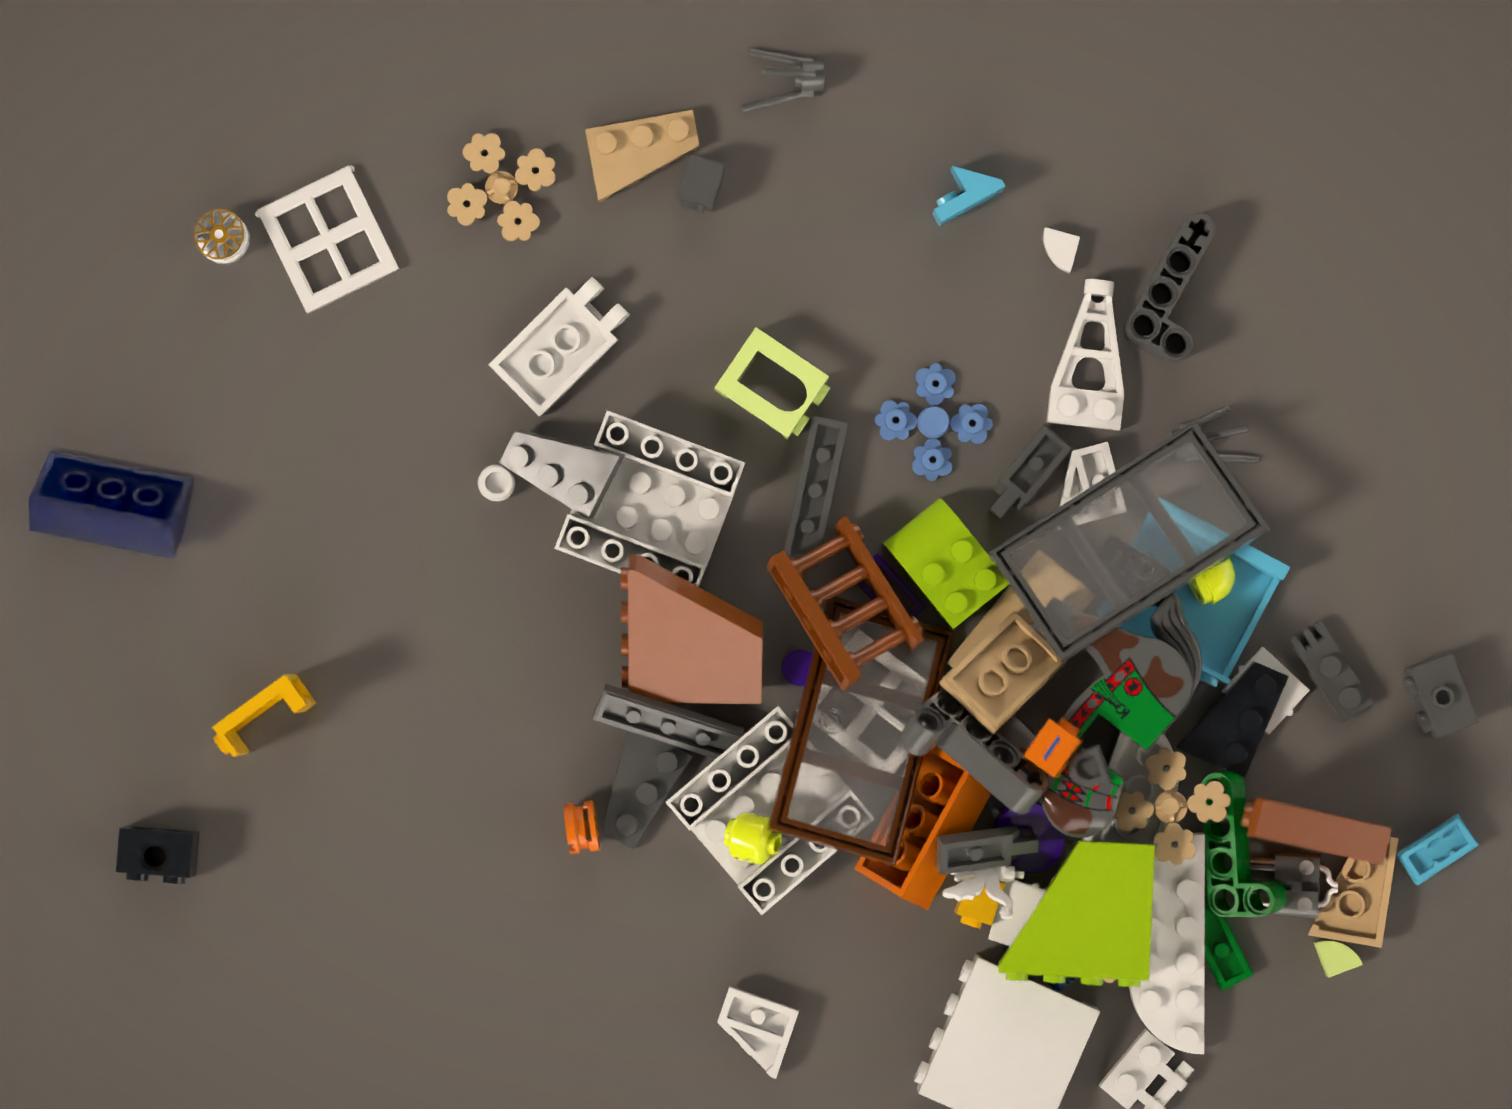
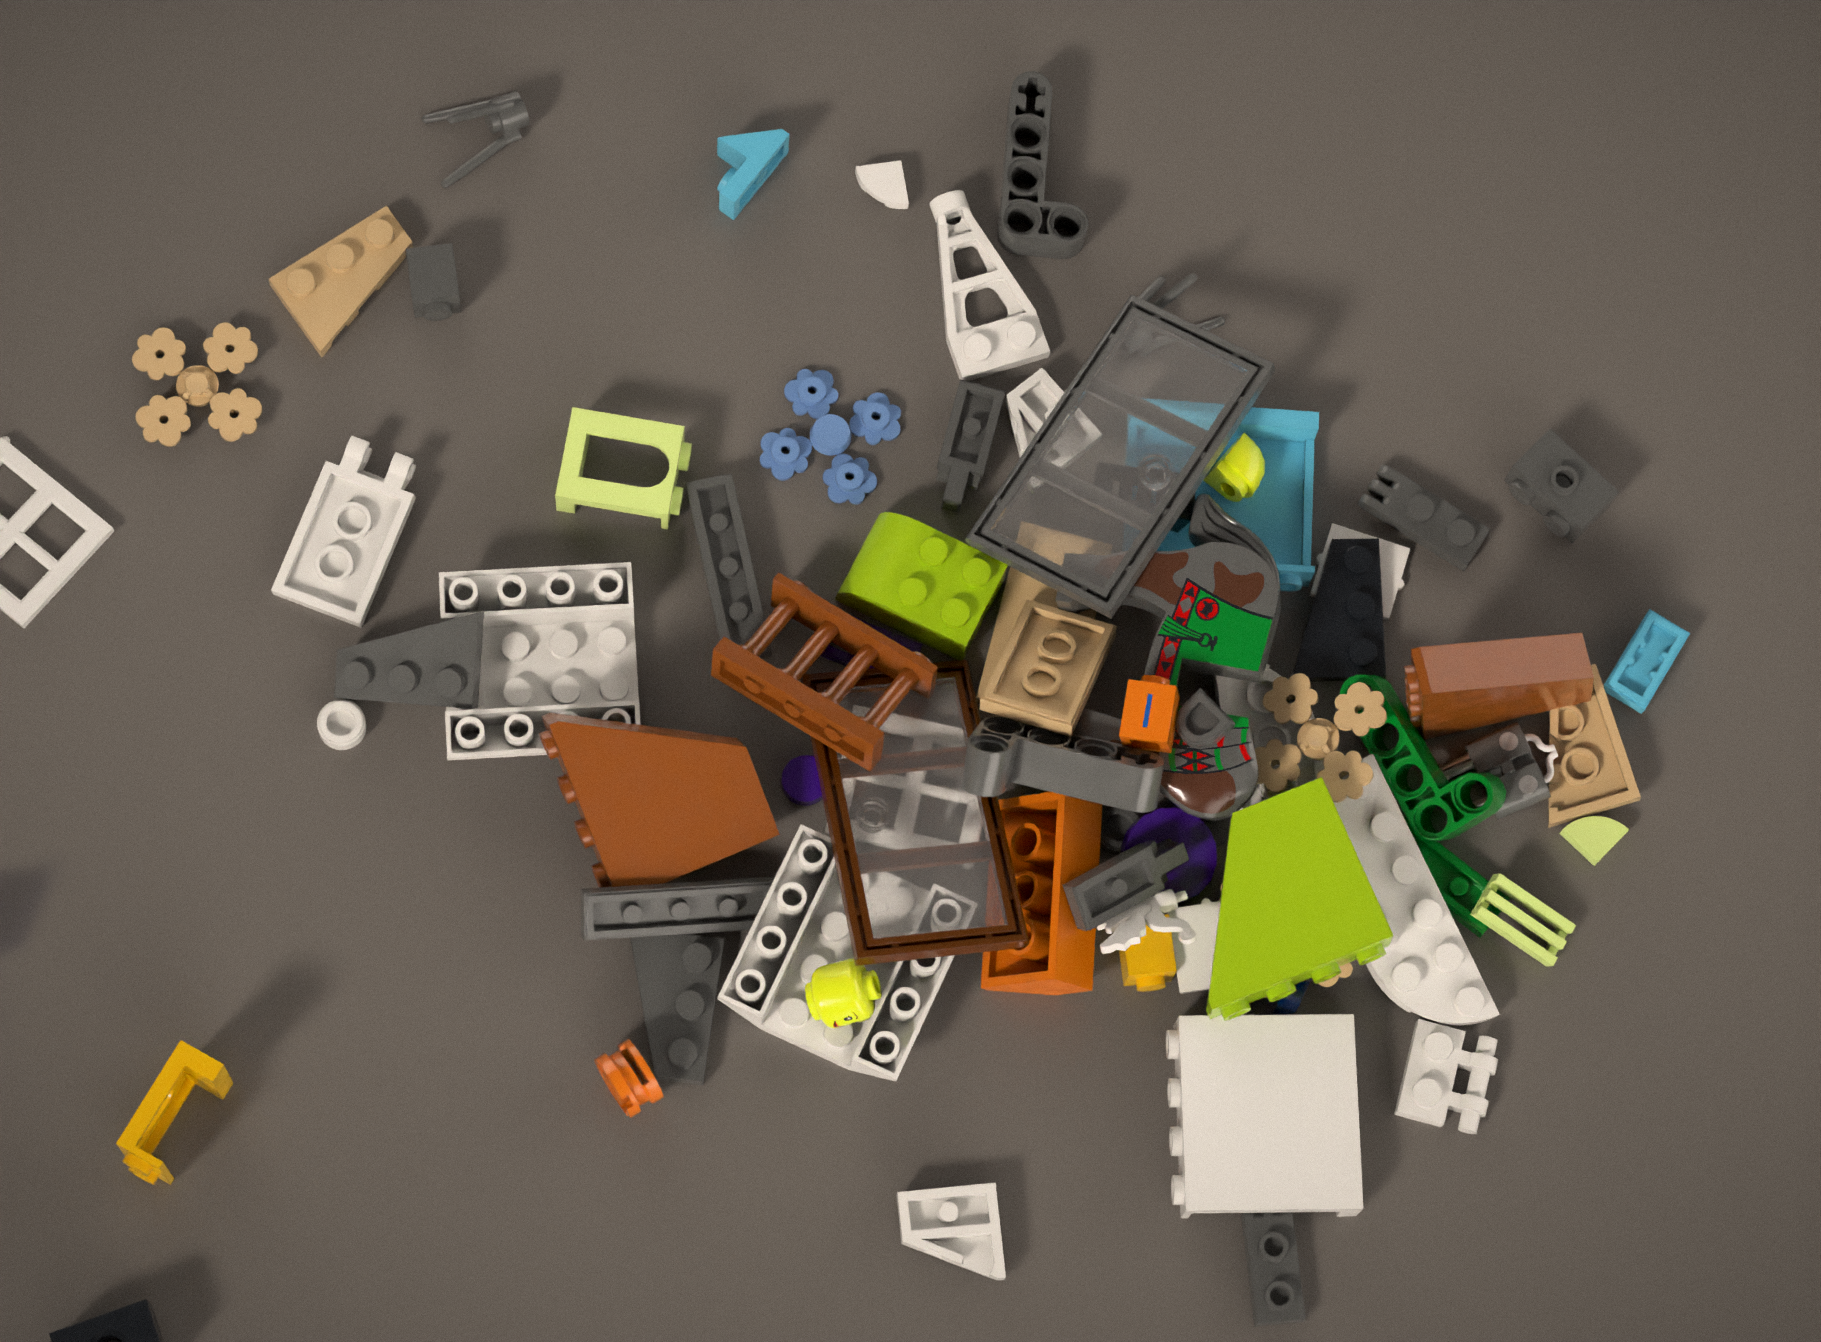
camera: 40 degrees left, 15 degrees down
(1269, 1018) = (1555, 940): none -> yellowish green tile

